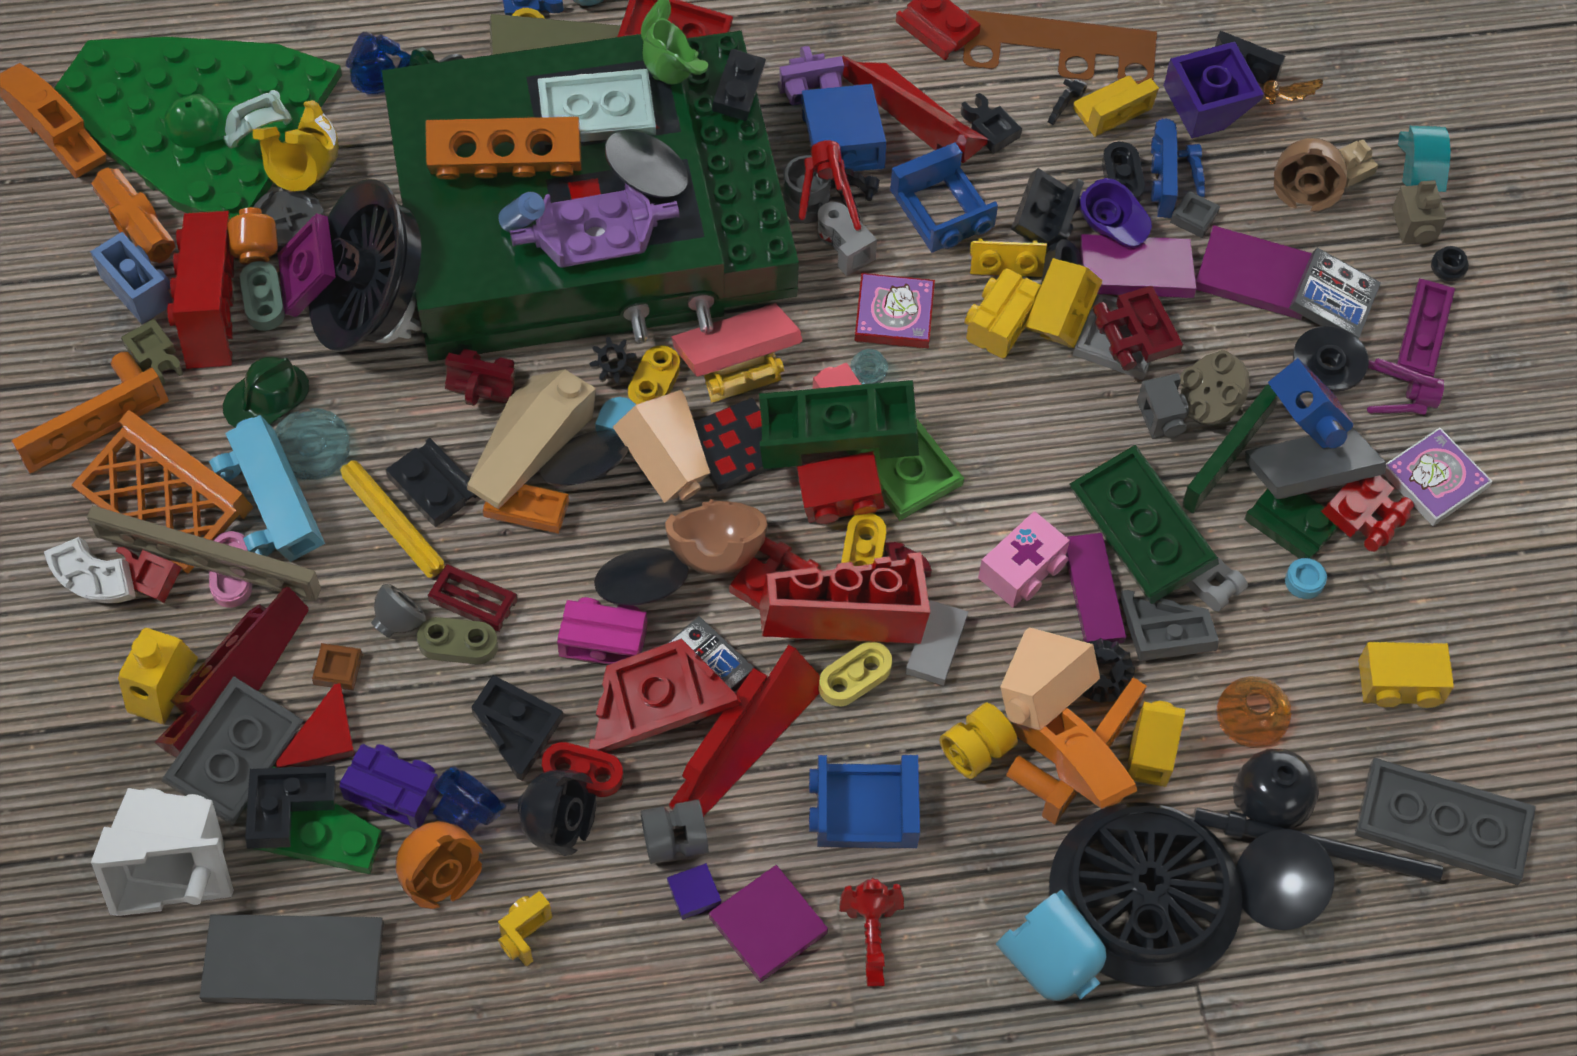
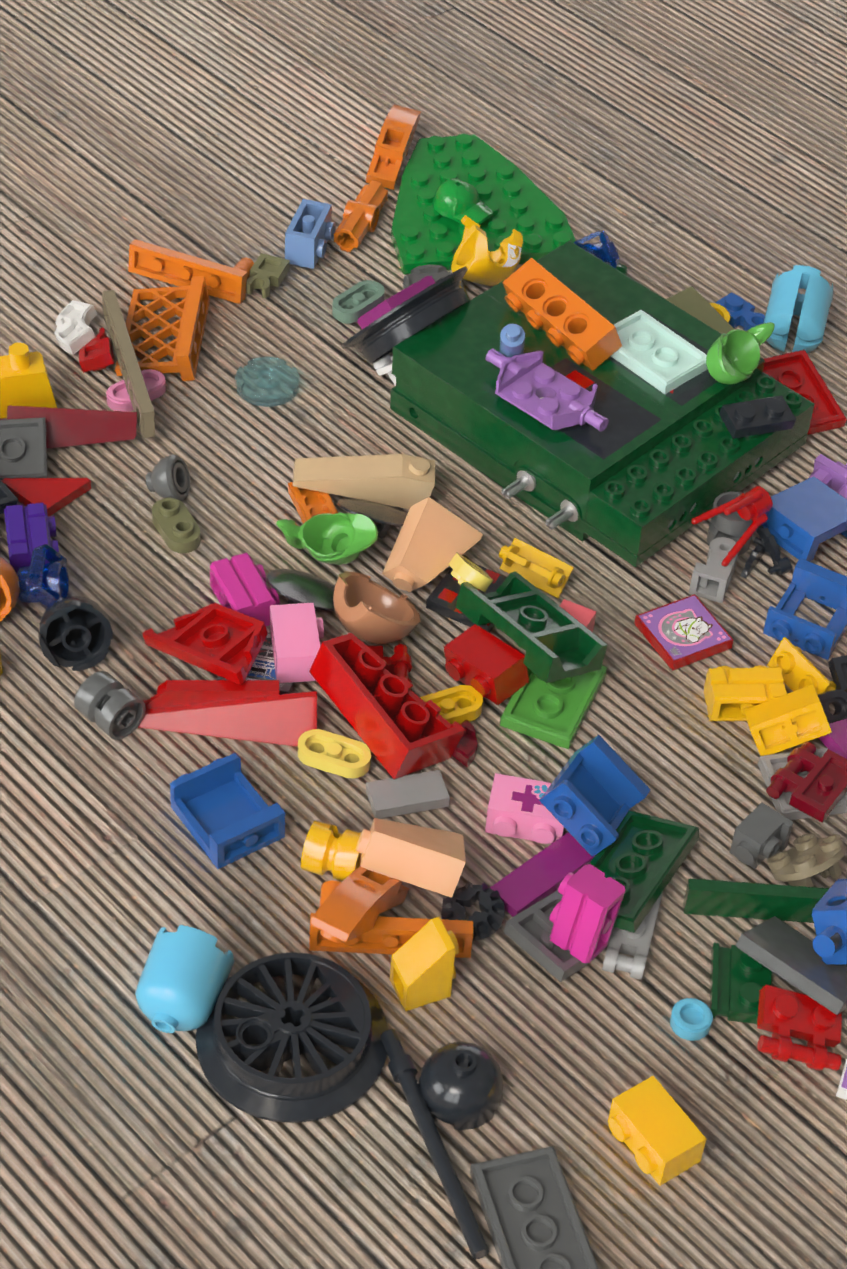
camera: 55 degrees right, 15 degrees down
(203, 290) = (330, 266): red wedge -> none
(237, 128) = (487, 214): light aqua helmet -> none
(252, 236) = (394, 268): orange head -> none
(268, 390) = (287, 339): dark green piece -> none
(274, 488) = (207, 373): medium azure brick -> none
(337, 665) = (105, 476): dark orange tile -> none
(392, 519) = (243, 447): yellow axle -> none
(431, 482) = (286, 445): black plate -> none
(456, 606) = (219, 535): dark red tile -> none
(479, 378) = (395, 432): dark red hips -> none
(515, 723) = (132, 583): black wing -> none
(589, 762) = (128, 641): red plate -> none
(597, 511) = (331, 537): none -> bright green hair
(603, 356) = (475, 491): black gear -> none
(646, 164) = (624, 391): shield -> none
(653, 375) = (494, 524): yellow plate -> none
(694, 891) = (74, 747): dark purple tile -> none
(713, 625) = (295, 640): none -> bright pink brick
(724, 431) = (467, 571): none -> light yellow plate
(737, 339) = (558, 546): coral tile -> none
(768, 923) = (80, 803): magenta tile -> none
(871, 901) = (139, 851): red piece -> none
(872, 359) = (618, 638): clear light blue plate -> none
(1053, 504) = (594, 795): none -> blue panel
(1194, 586) = (586, 912): none -> dark pink brick
(1246, 725) = (523, 1052): clear orange piece -> none
(1285, 879) = (374, 1124): black shield -> none

